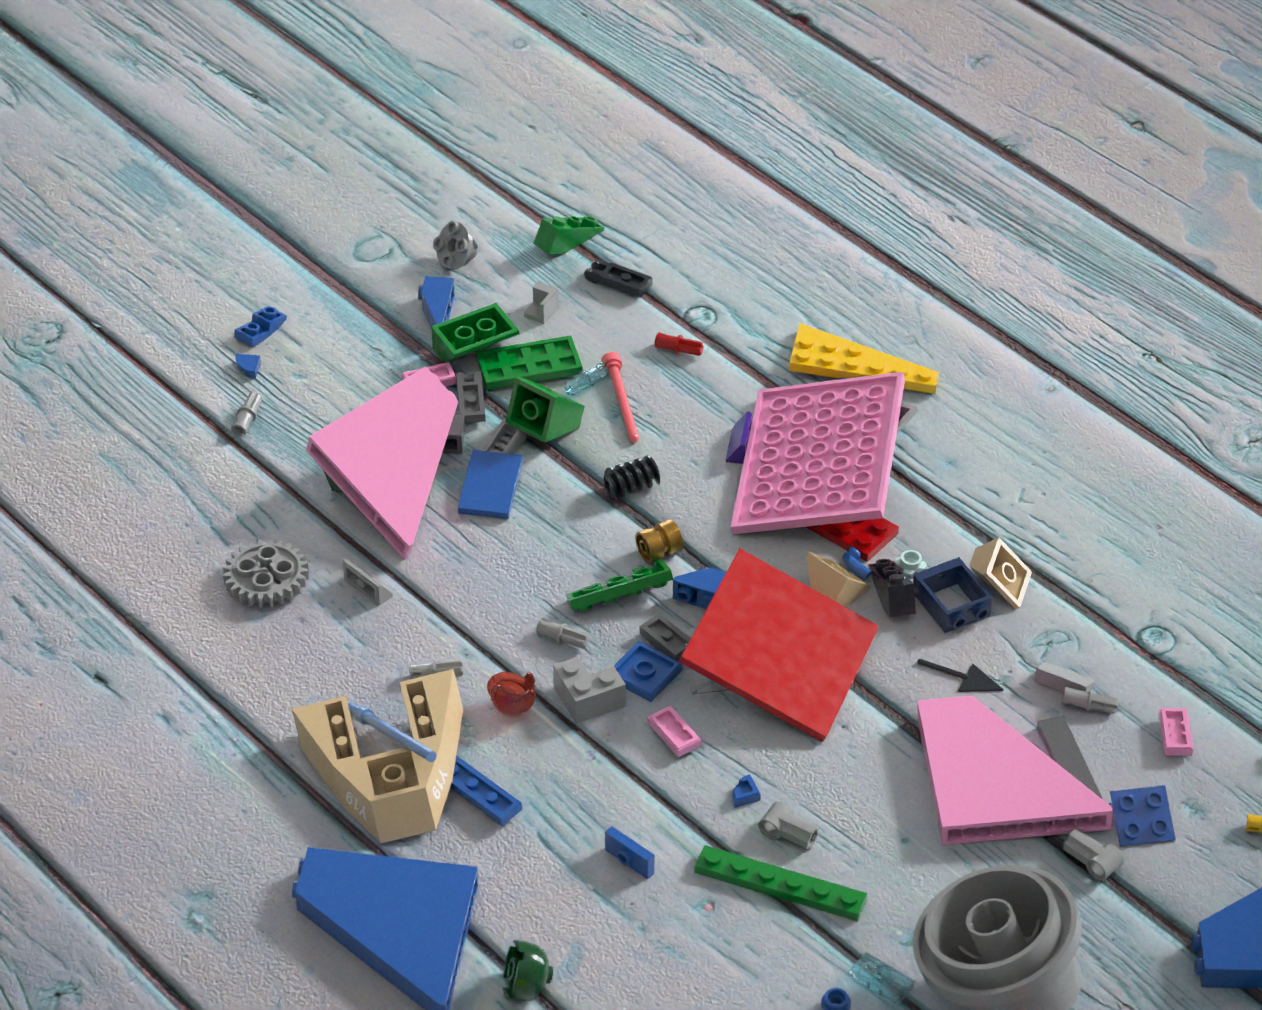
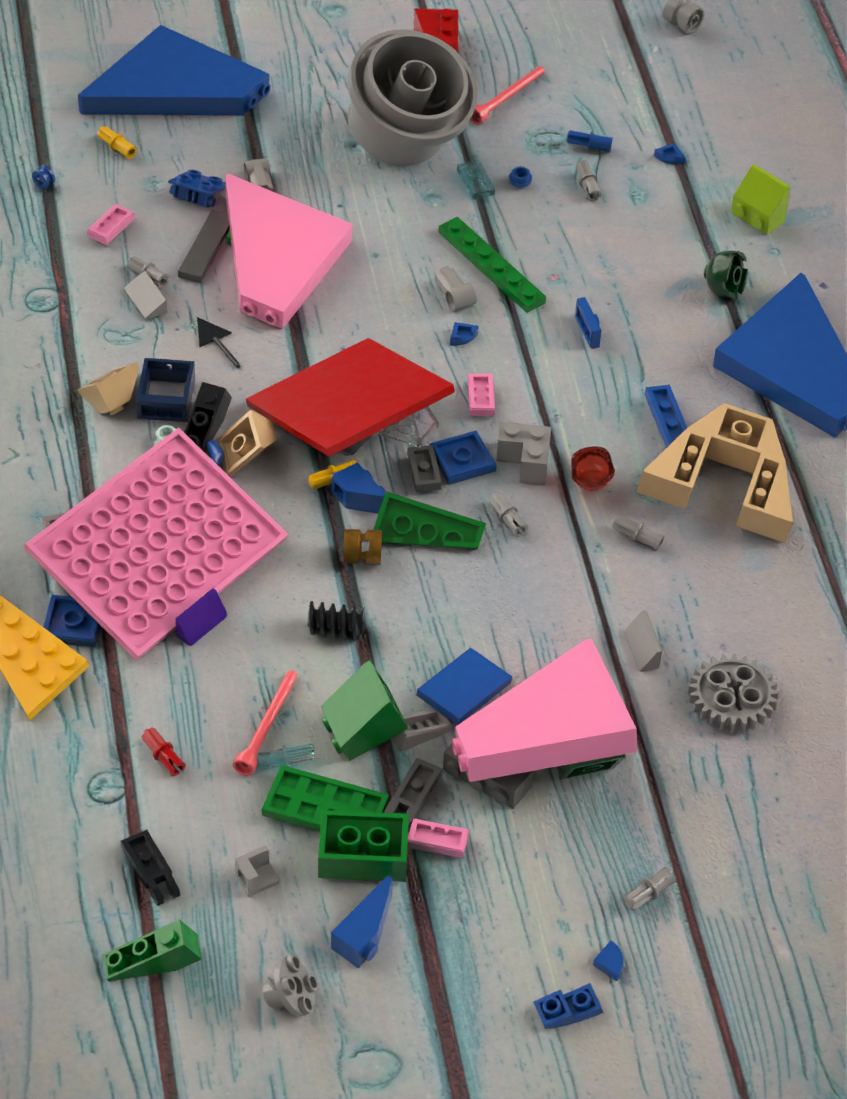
camera: 150 degrees left, 5 degrees up
(366, 716) = (725, 514): medium blue bar -> none

